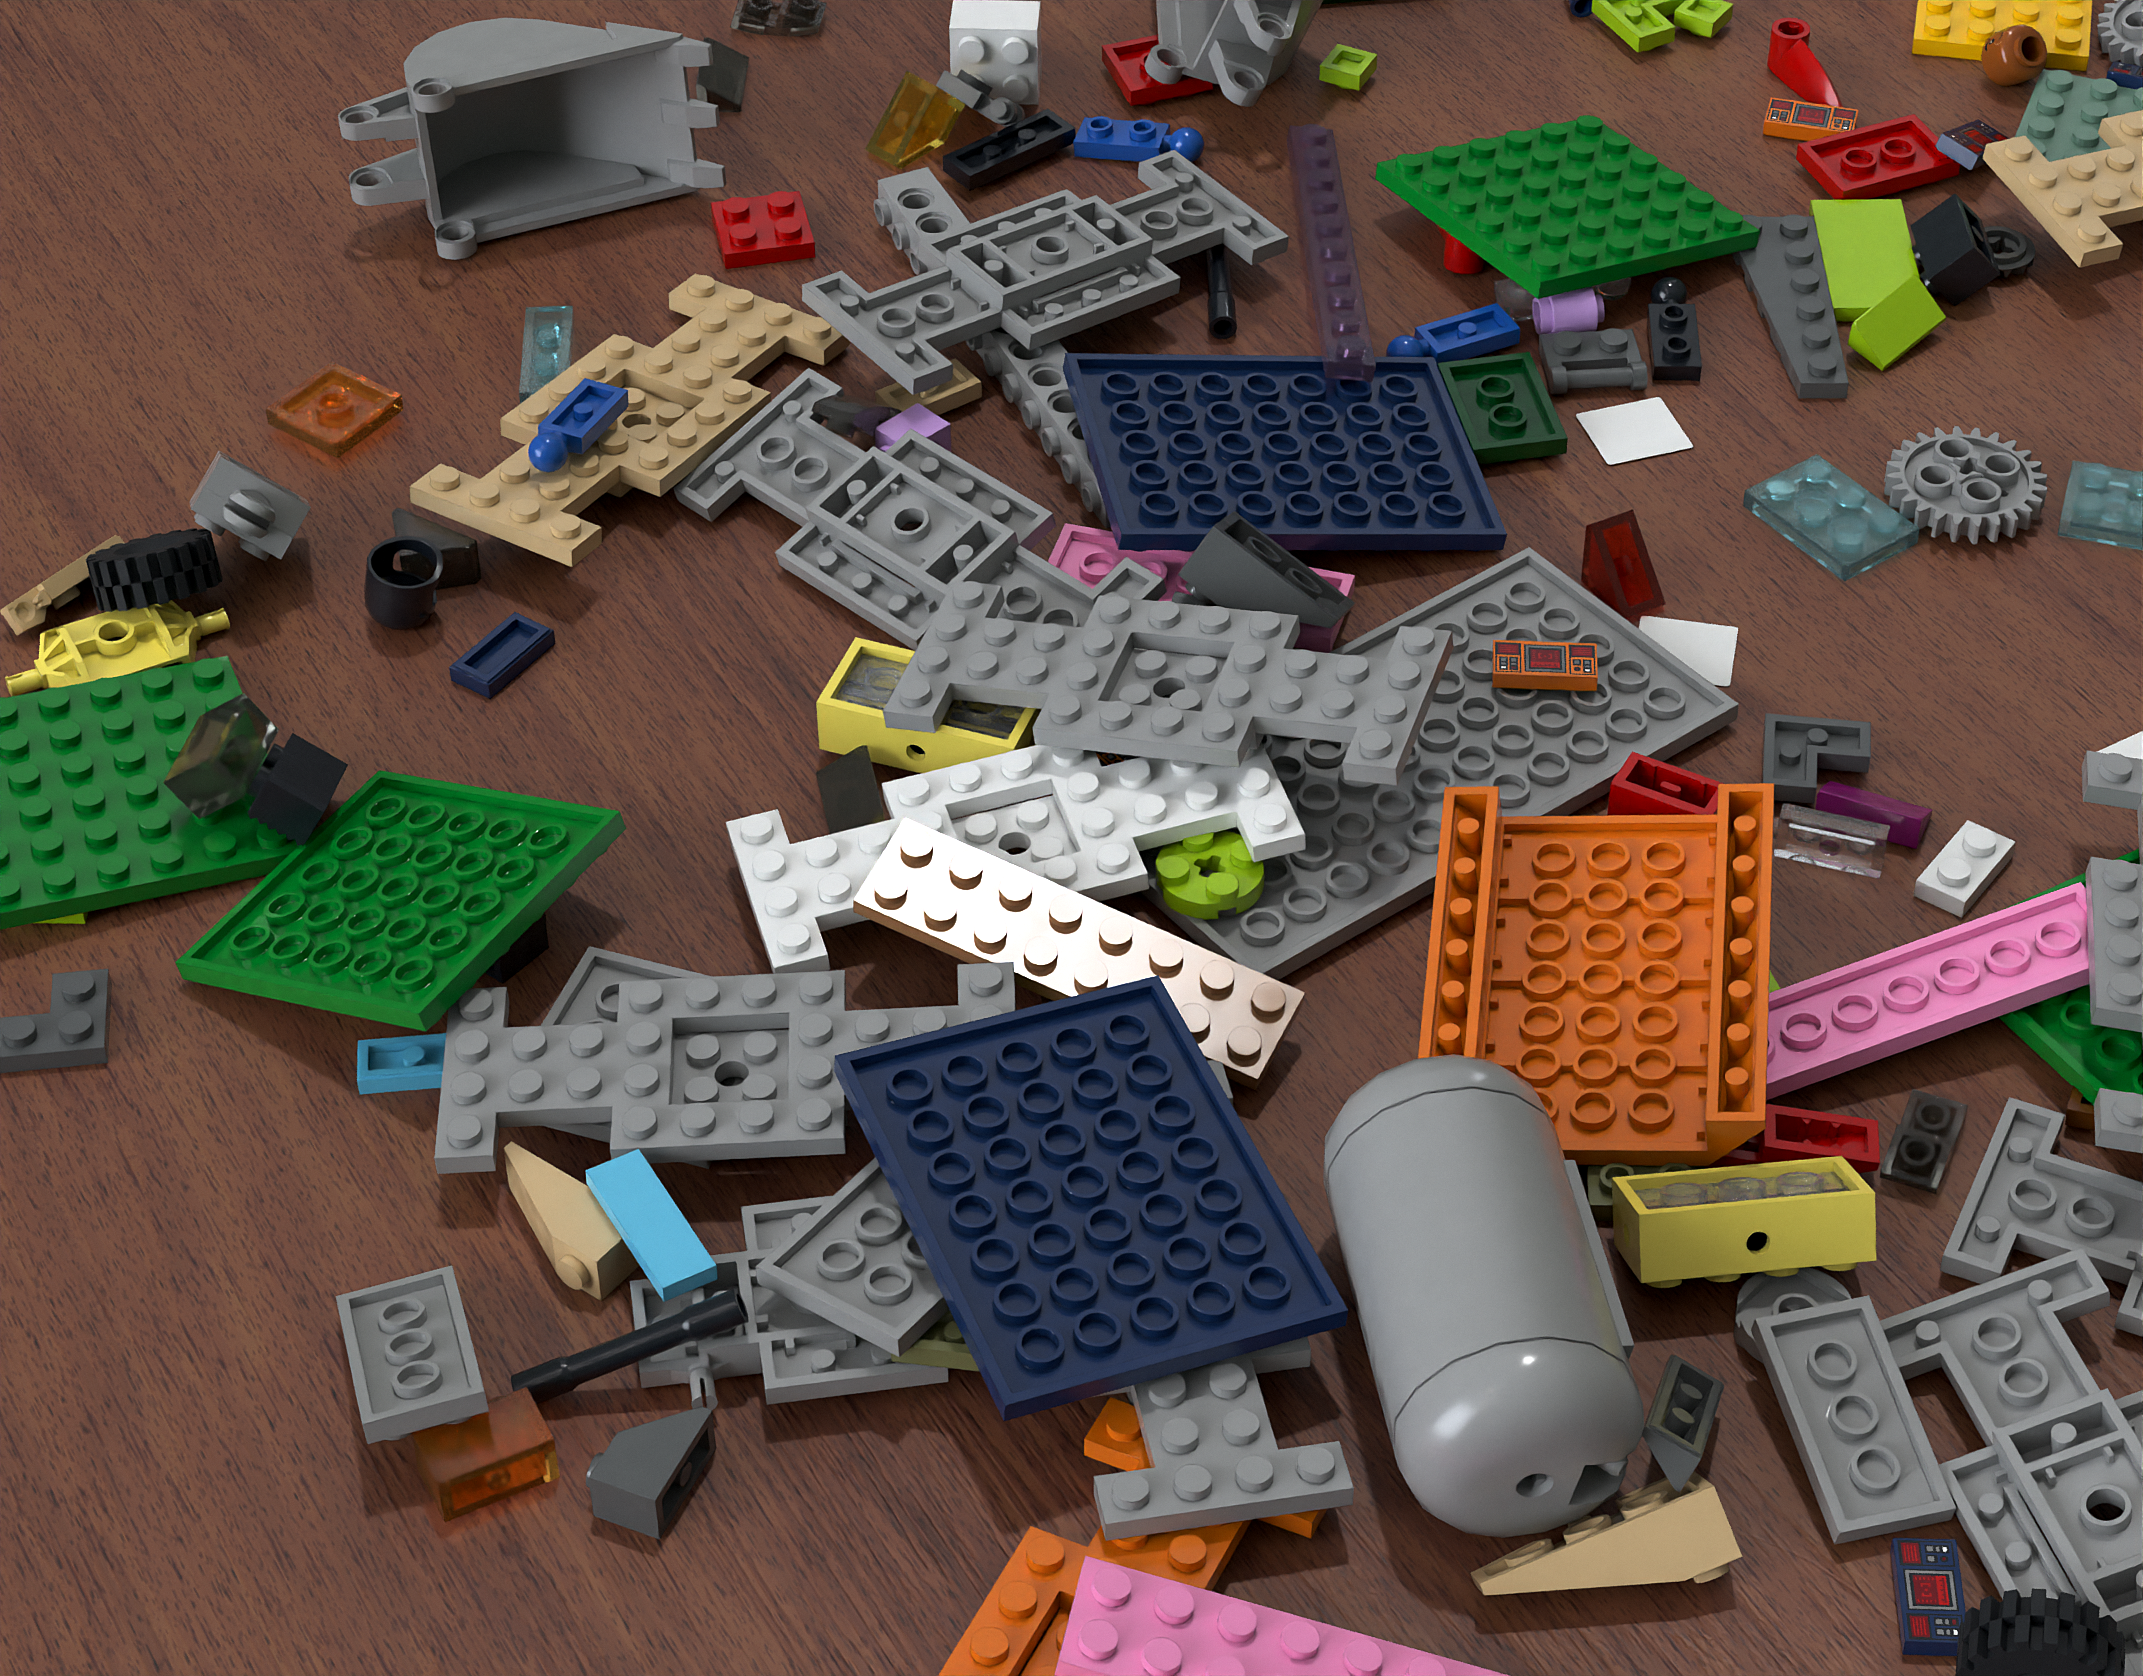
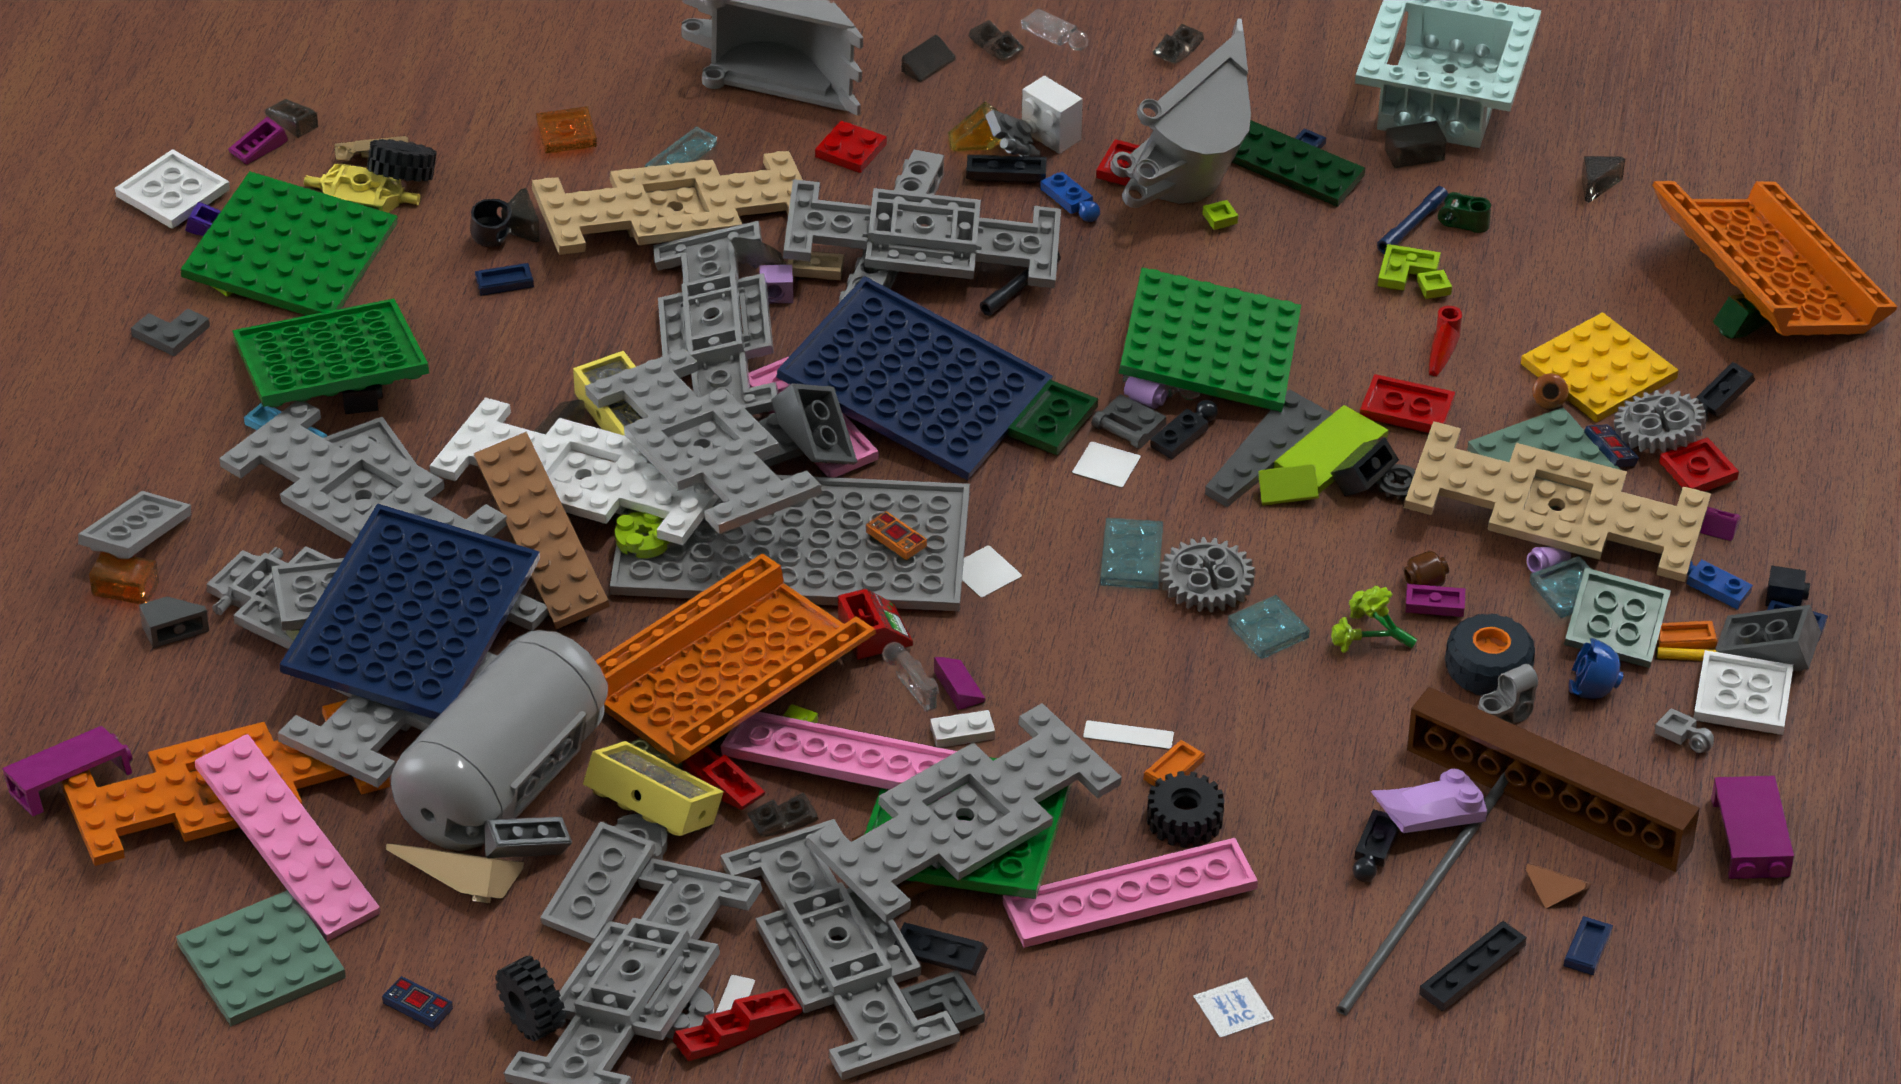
camera: 40 degrees right, 0 degrees up
(221, 756) = (327, 254): clear smoke brick -> none
(248, 506) = (461, 152): light grey brick -> none
(294, 788) = (346, 285): black brick -> none
(569, 1224) = (248, 519): tan slope -> none
(576, 423) = (625, 190): blue plate -> none
(651, 1225) = (262, 530): medium azure tile -> none
(692, 1324) = (183, 568): black piece -> none
(1330, 254) = (1073, 299): clear purple plate -> none
(1459, 336) = (1080, 373): blue plate -> none
(1619, 566) = (996, 515): clear red slope -> none
(1802, 744) = (965, 636): dark grey plate -> none
(1806, 120) = (1408, 366): tile -> none
(1928, 1595) = (558, 955): tile -> none
(1968, 143) = (1472, 423): tile -> none

